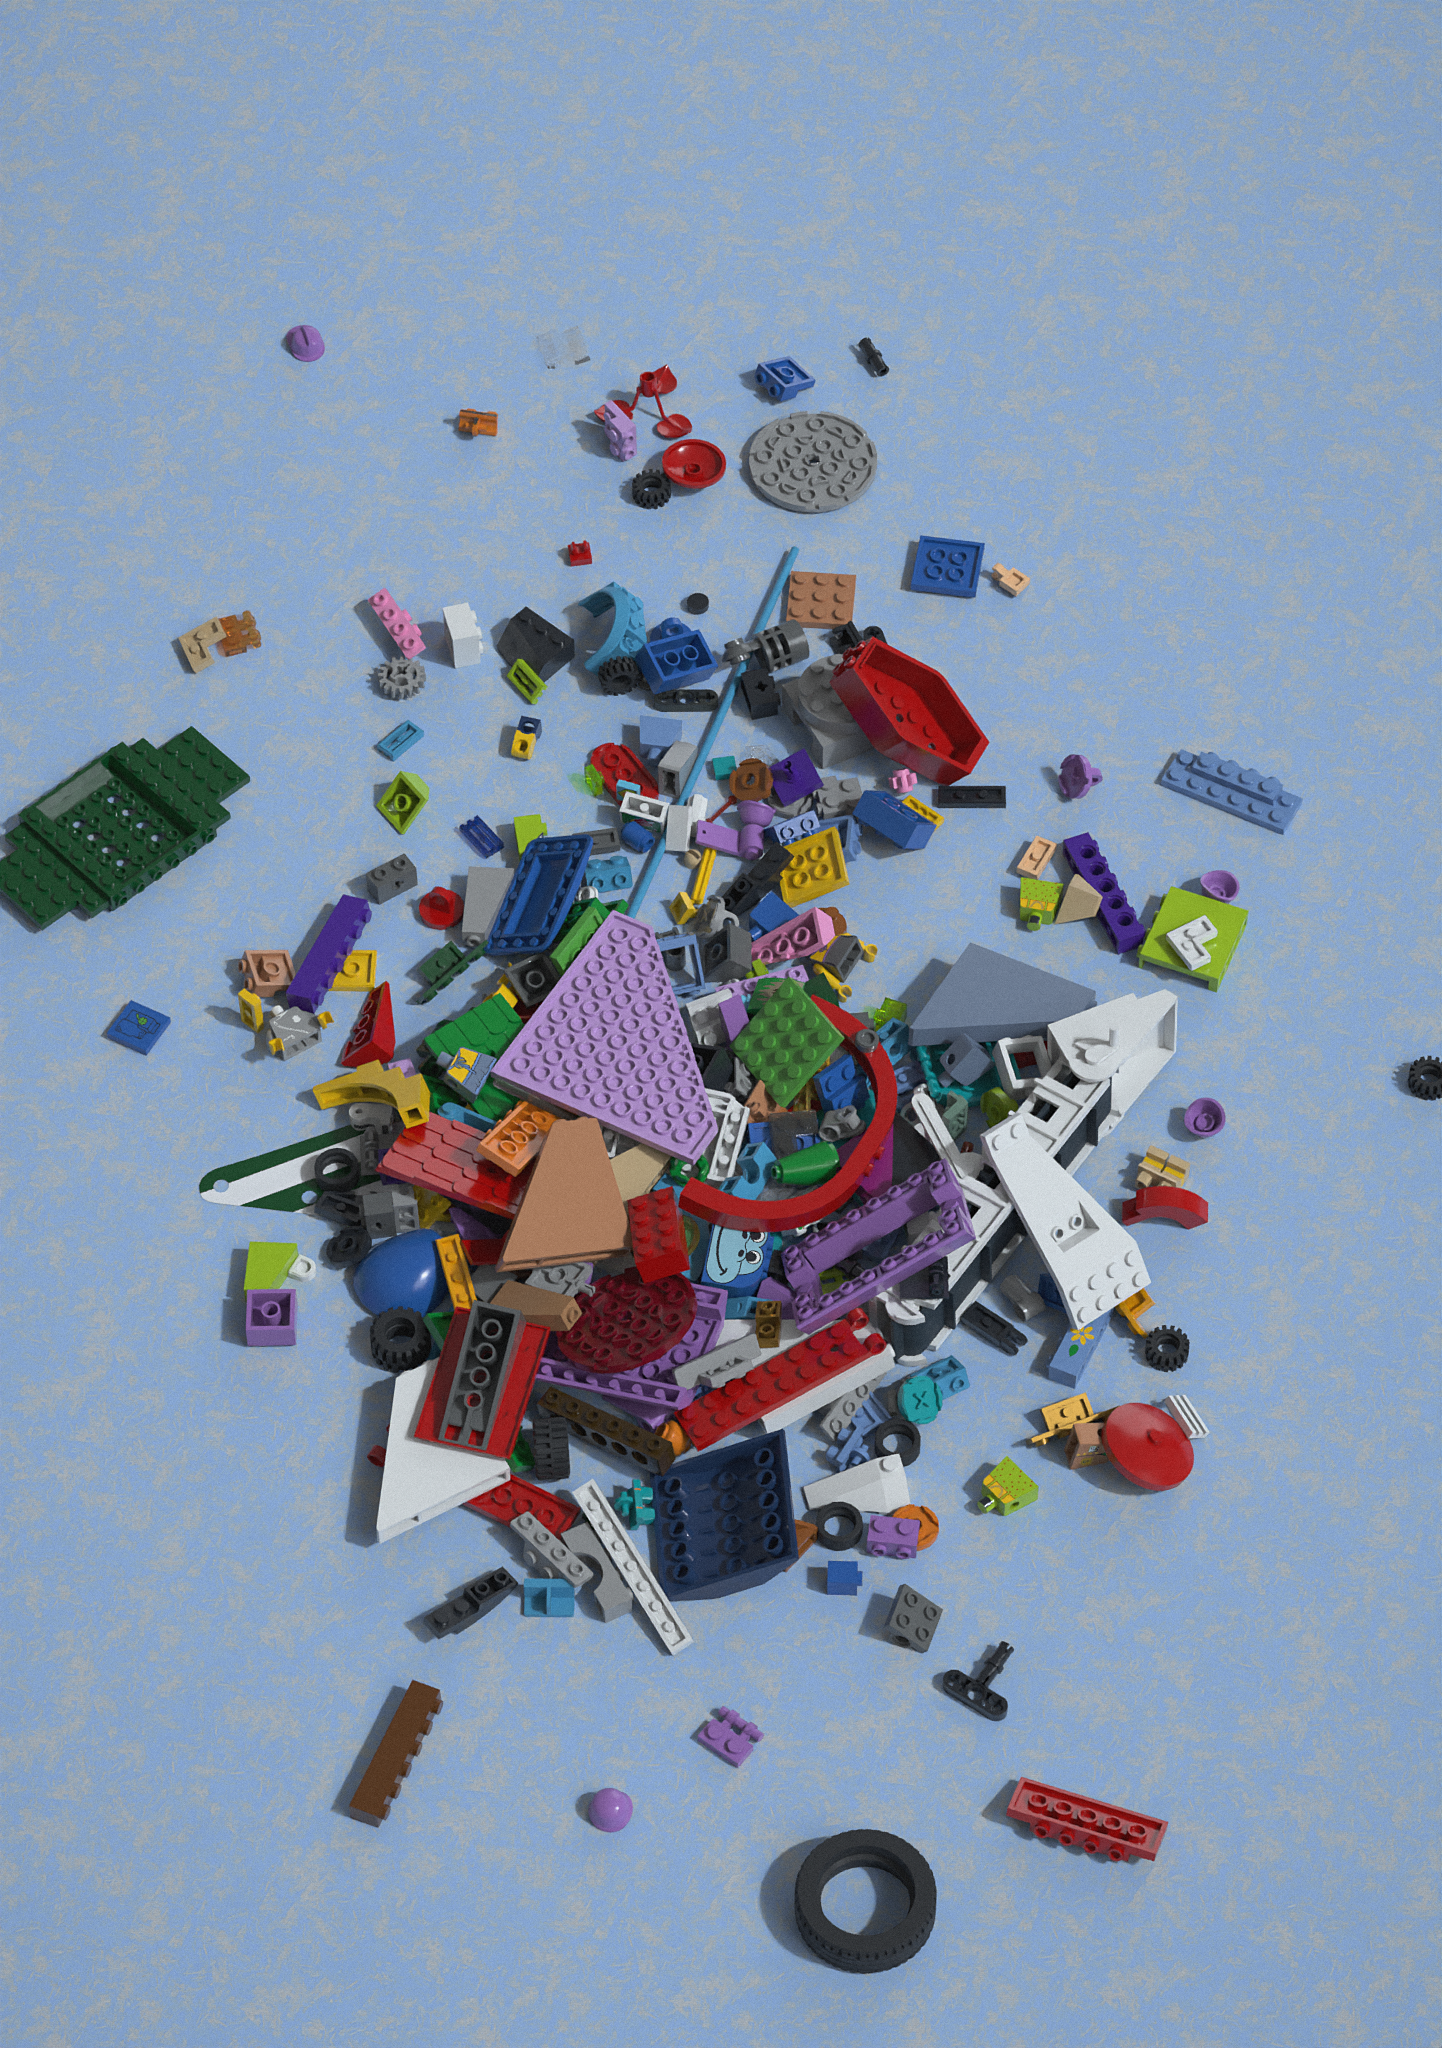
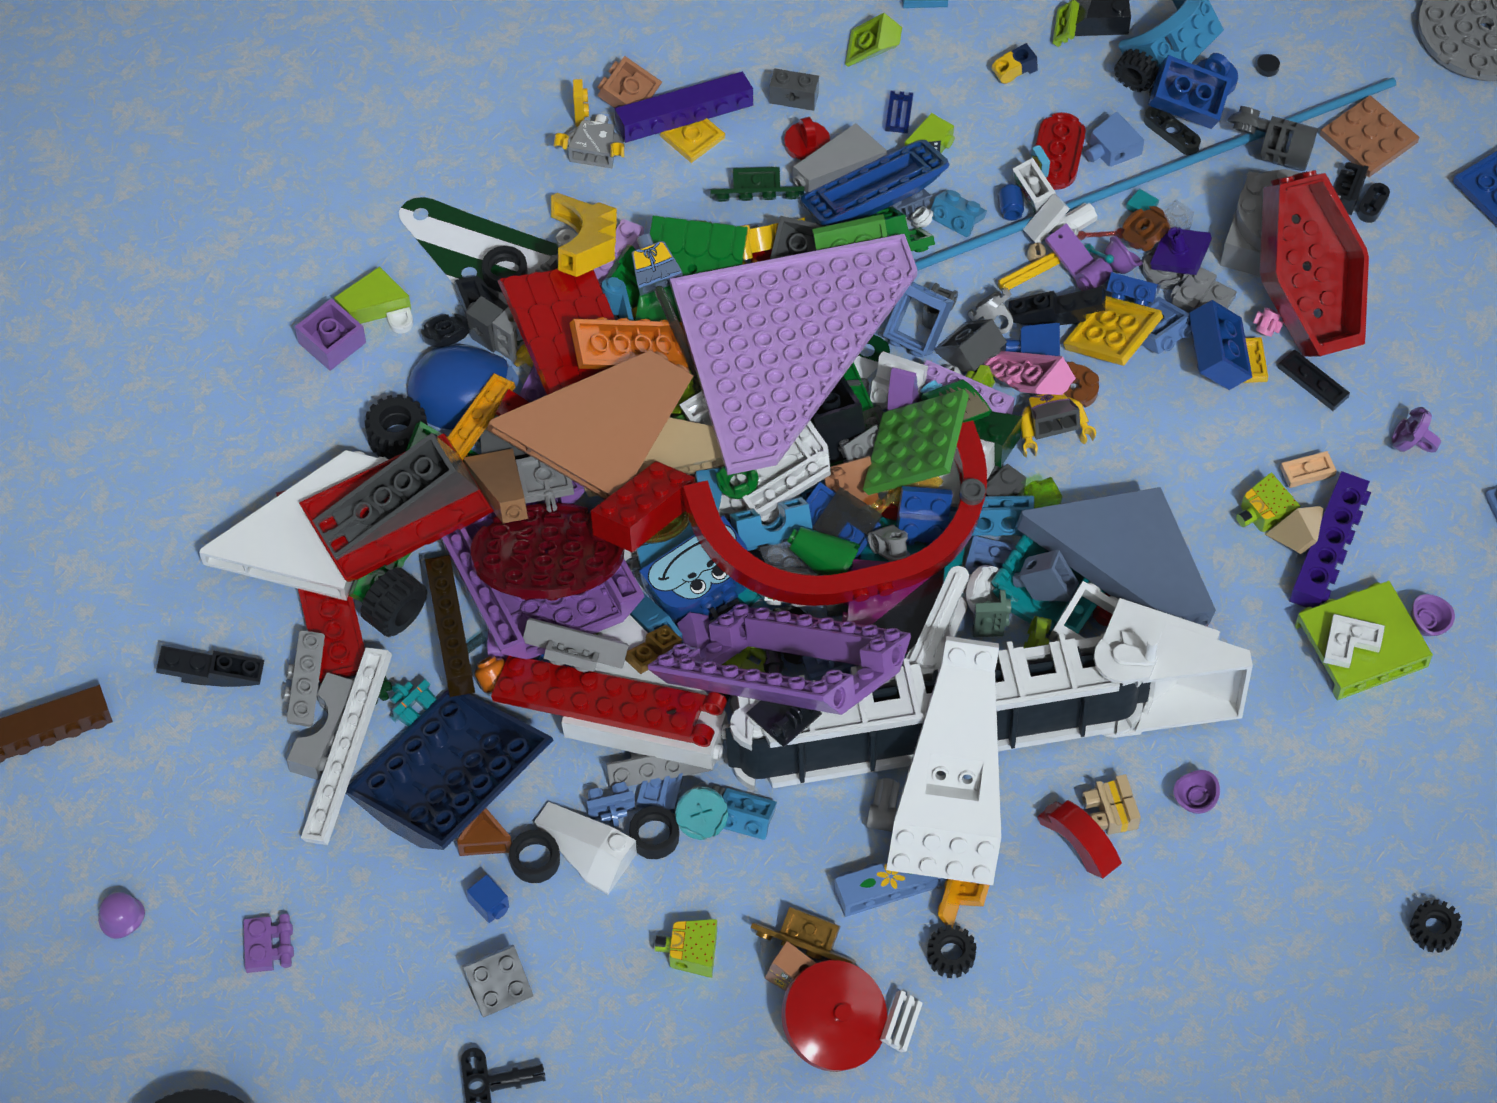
camera: 45 degrees right, 5 degrees up
(138, 1027) = (499, 55): blue tile -> none
(374, 1032) = (645, 195): red wedge -> none
(548, 1598) = (269, 715): dark azure panel -> none
(594, 780) = (1029, 134): clear neon green plate -> none
(603, 840) = (976, 181): dark grey plate -> none
(675, 768) = (1099, 171): light grey slope -> none
(683, 908) = (982, 282): yellow tile -> none
(754, 820) = (1108, 258): none -> teal hinge
(760, 693) = (1233, 168): black brick -> none
(893, 1537) = (561, 901): medium lavender bracket -> none
(928, 1523) = (588, 898): orange plate -> none
(993, 1327) = (834, 807): black hinge -> none

